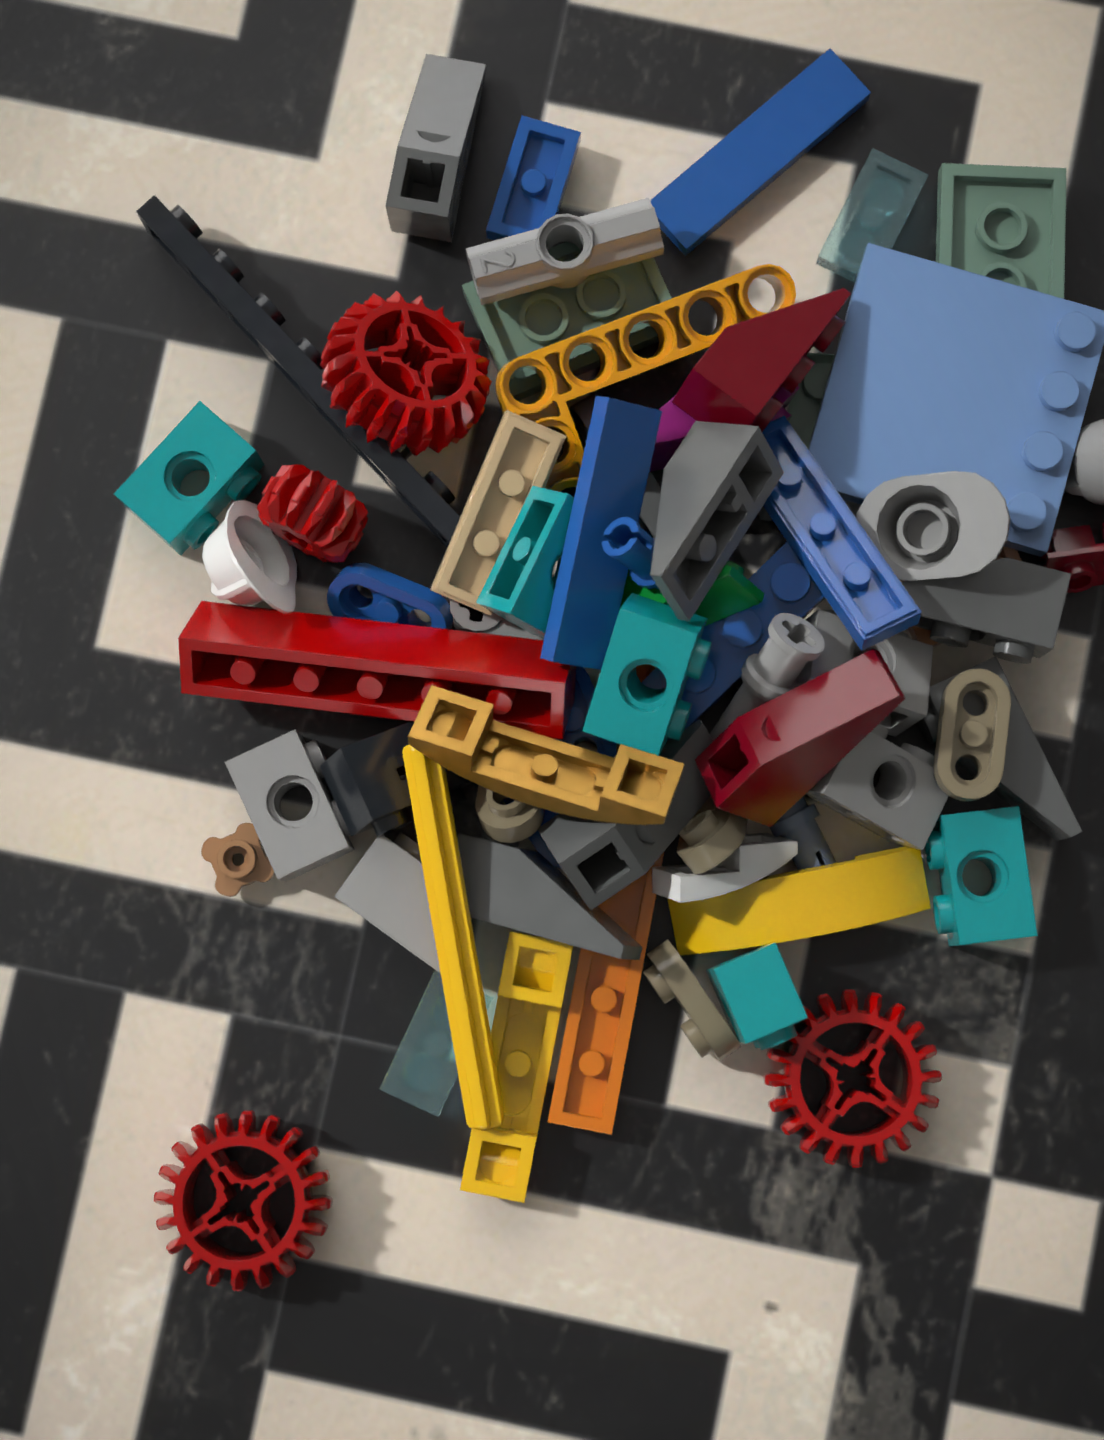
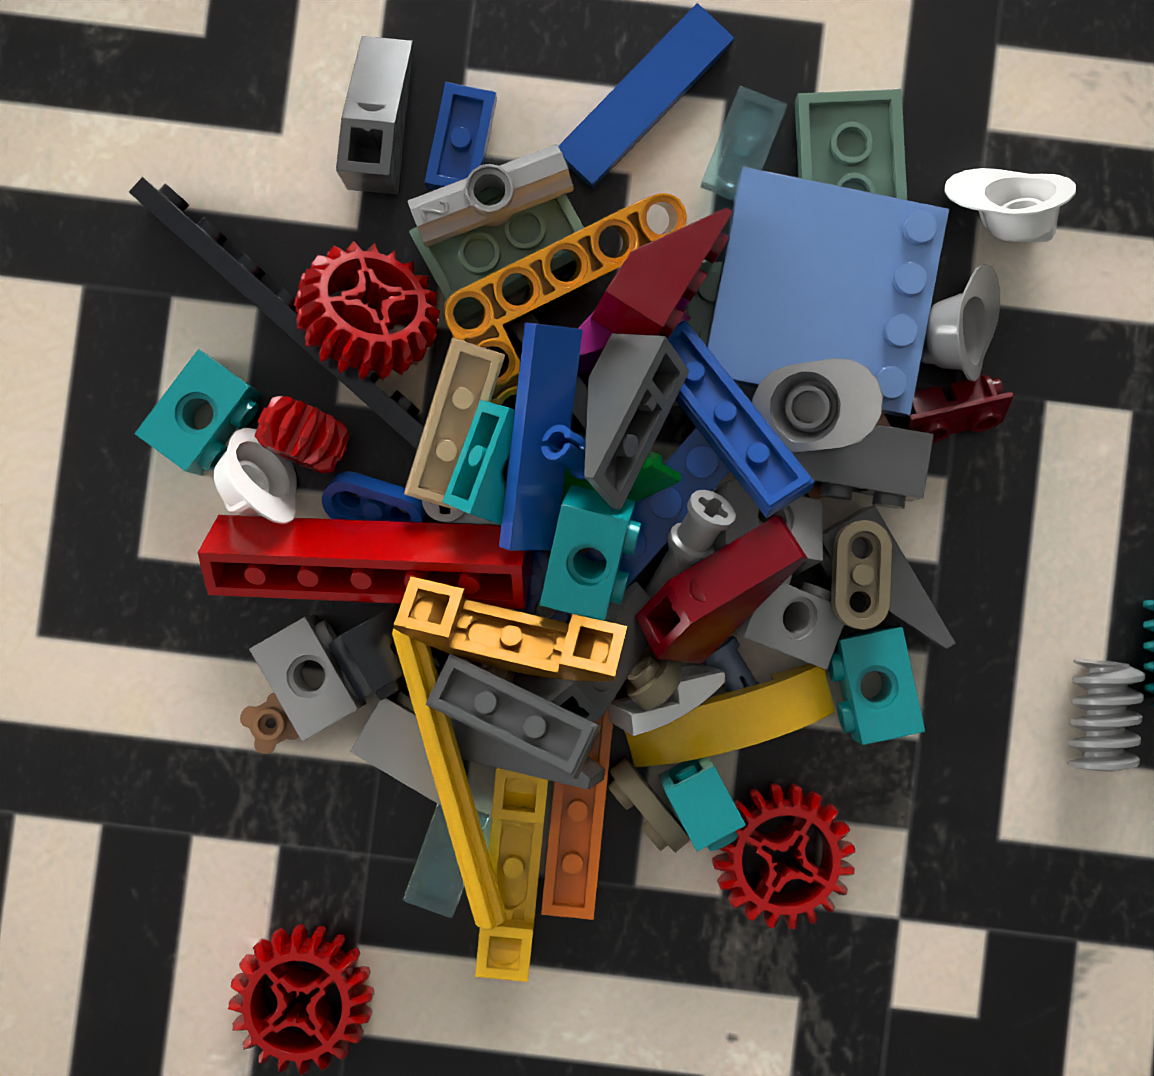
camera: 15 degrees left, 5 degrees up
(540, 857) = (514, 716): none -> dark grey tile

